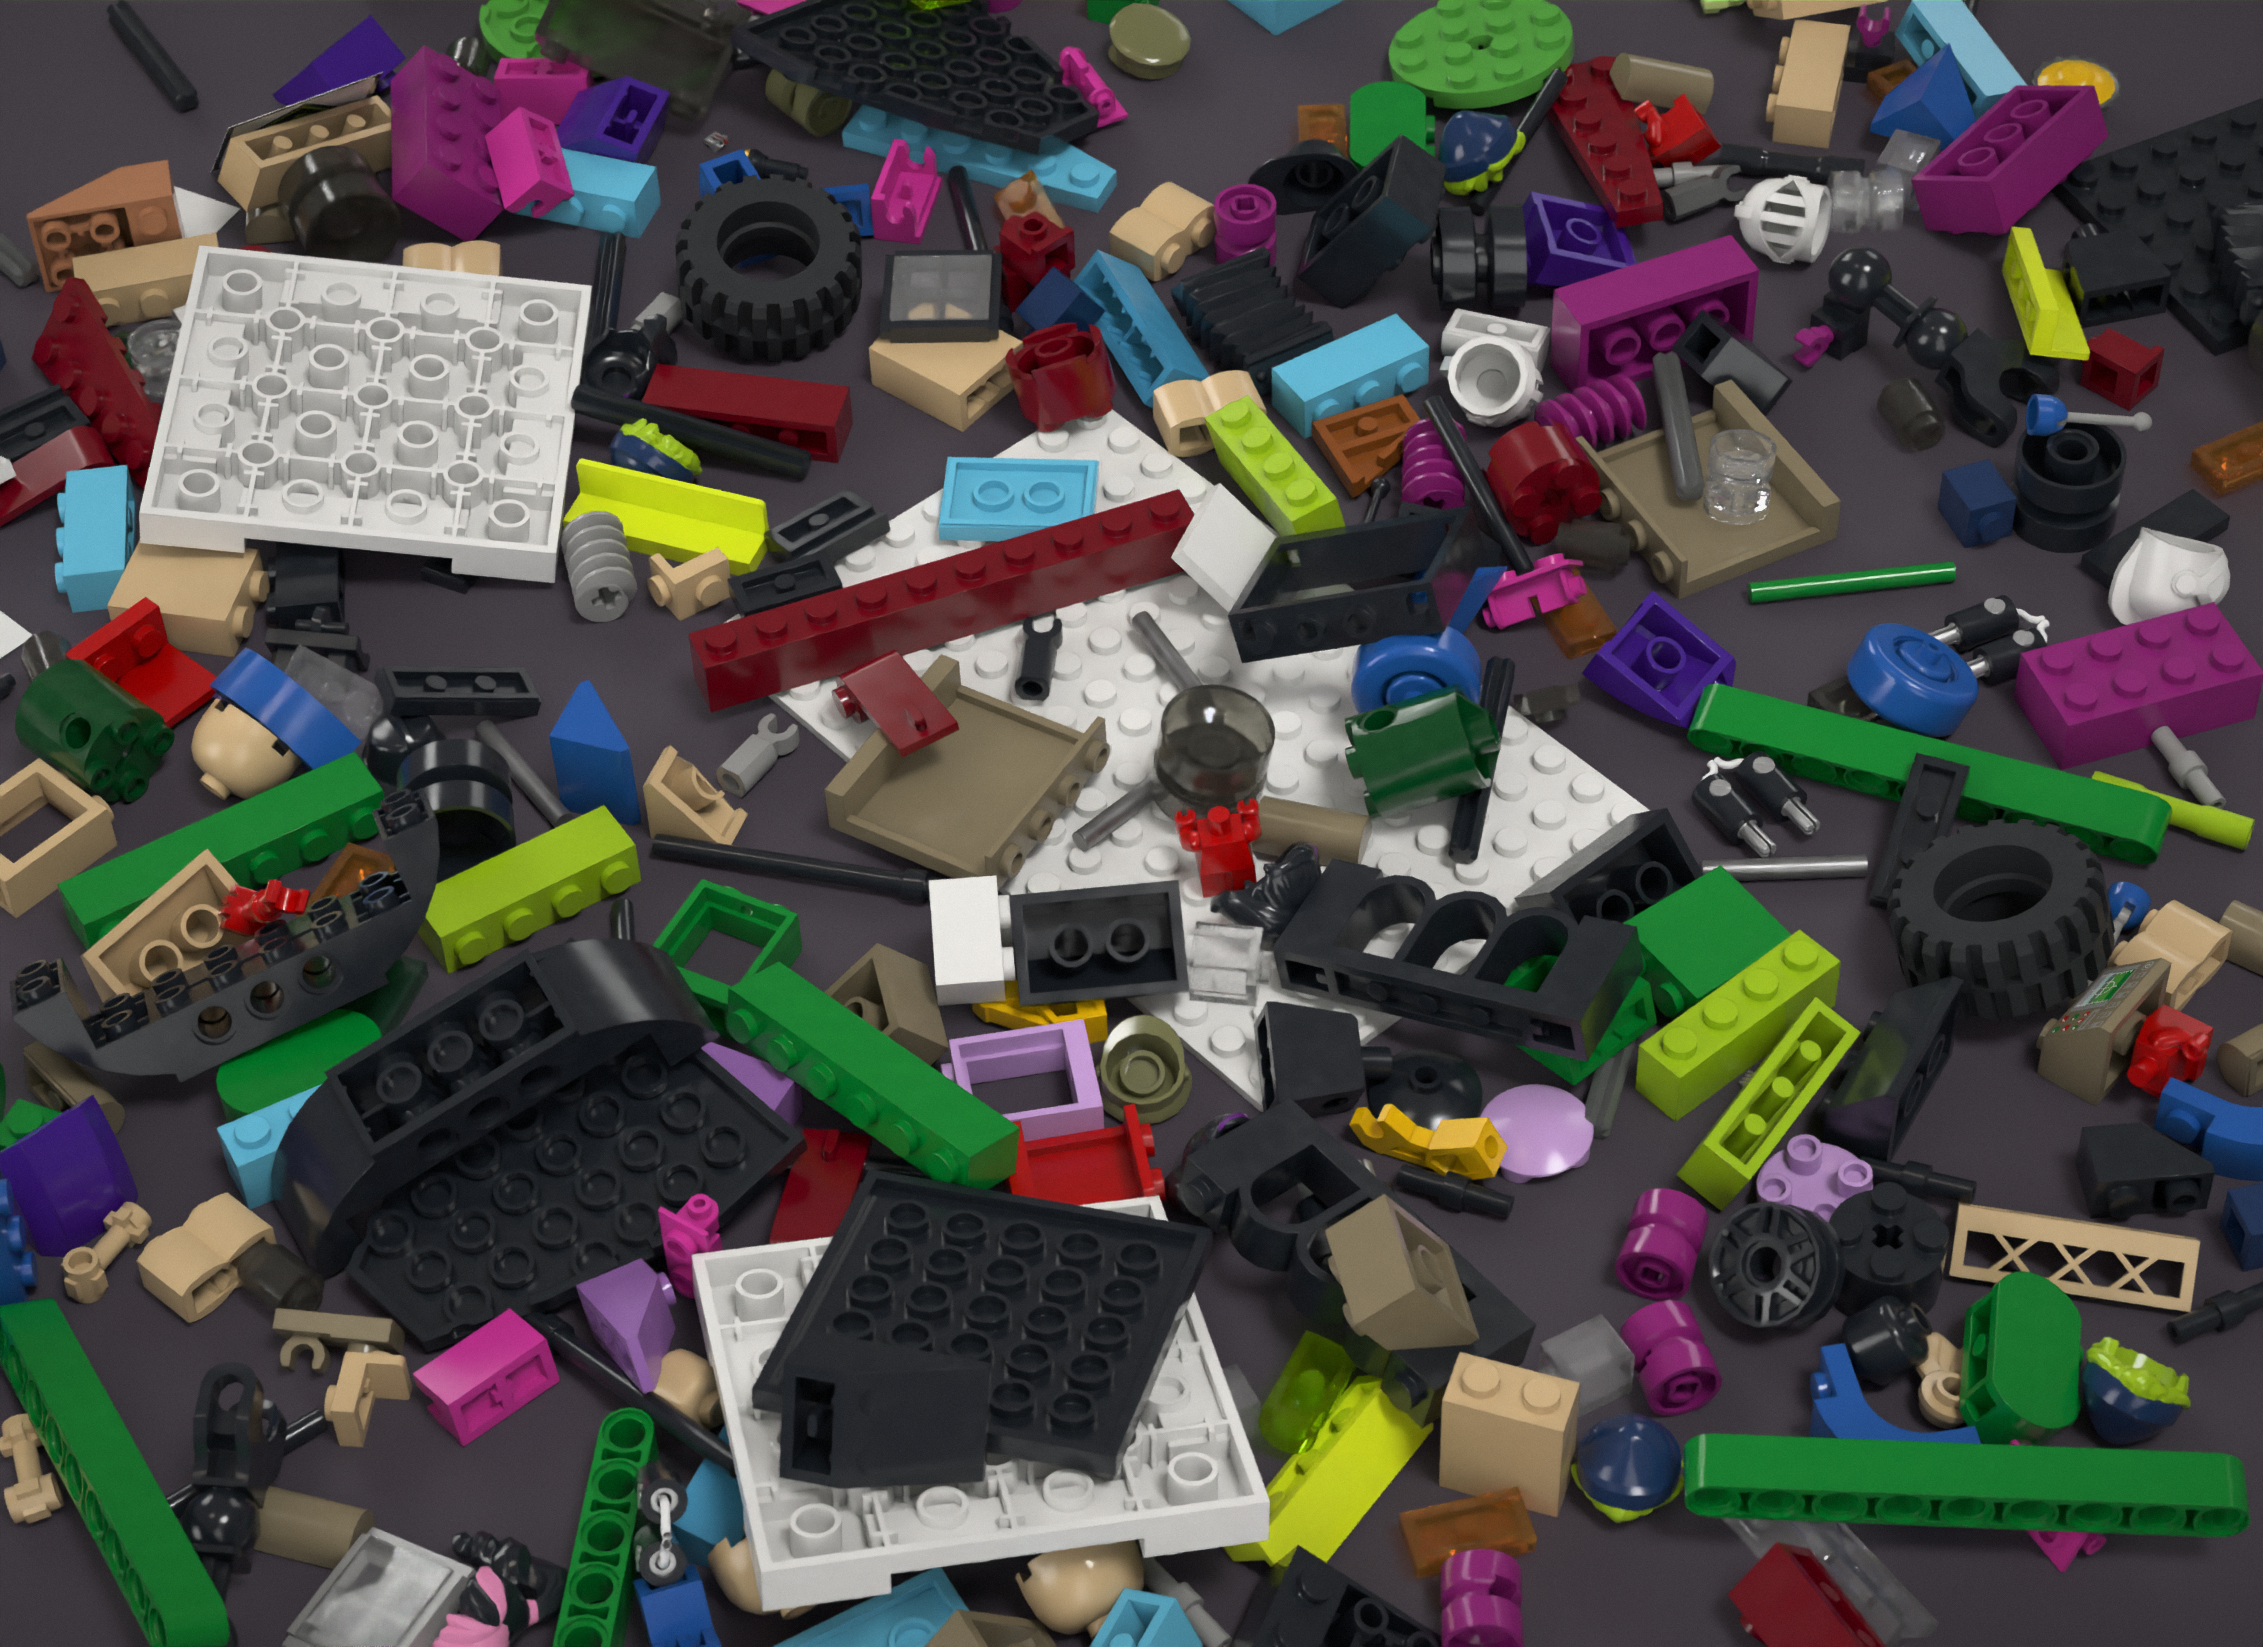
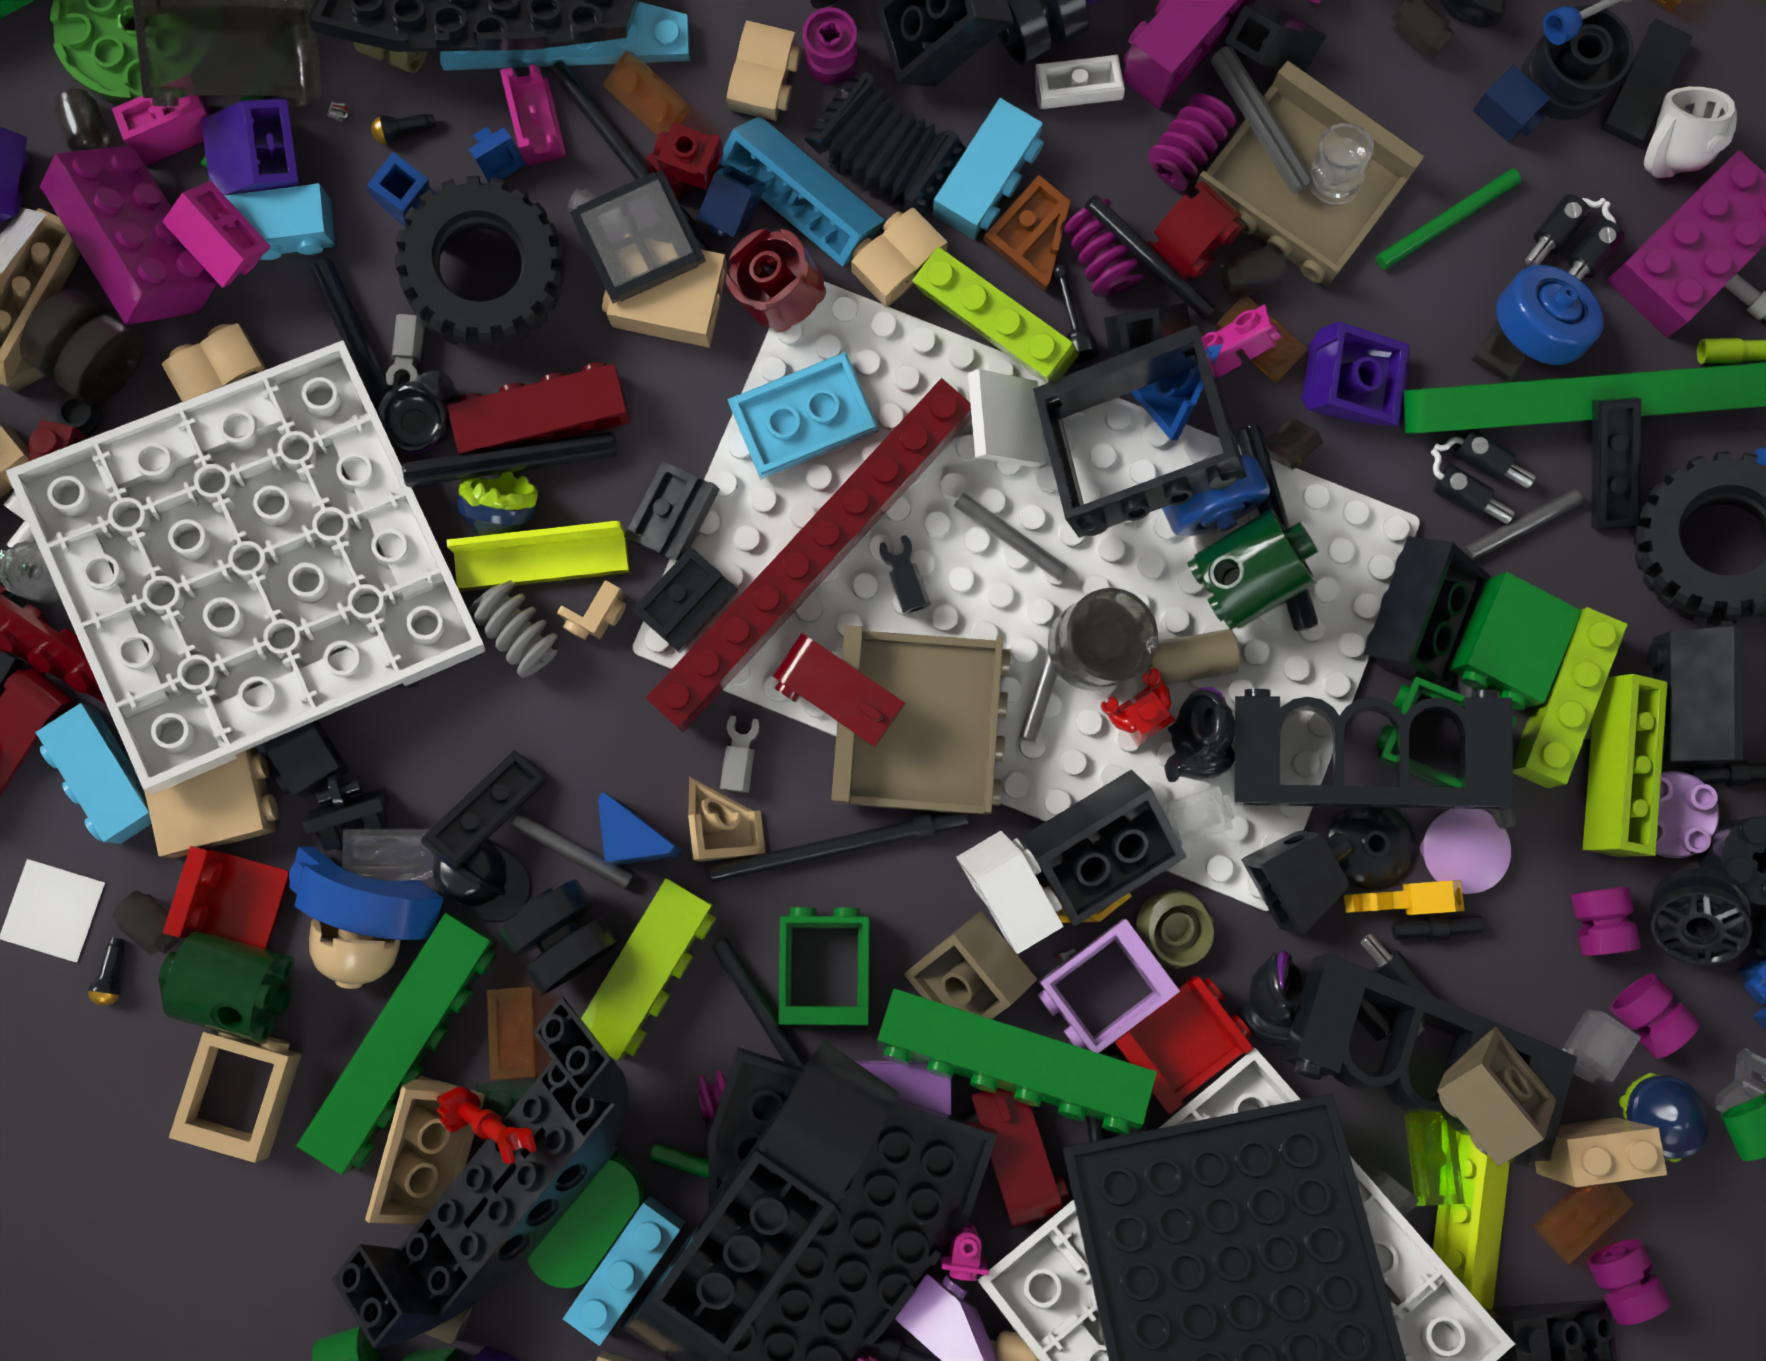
camera: 30 degrees left, 35 degrees up
(1493, 380) = (1106, 138): white helmet -> none

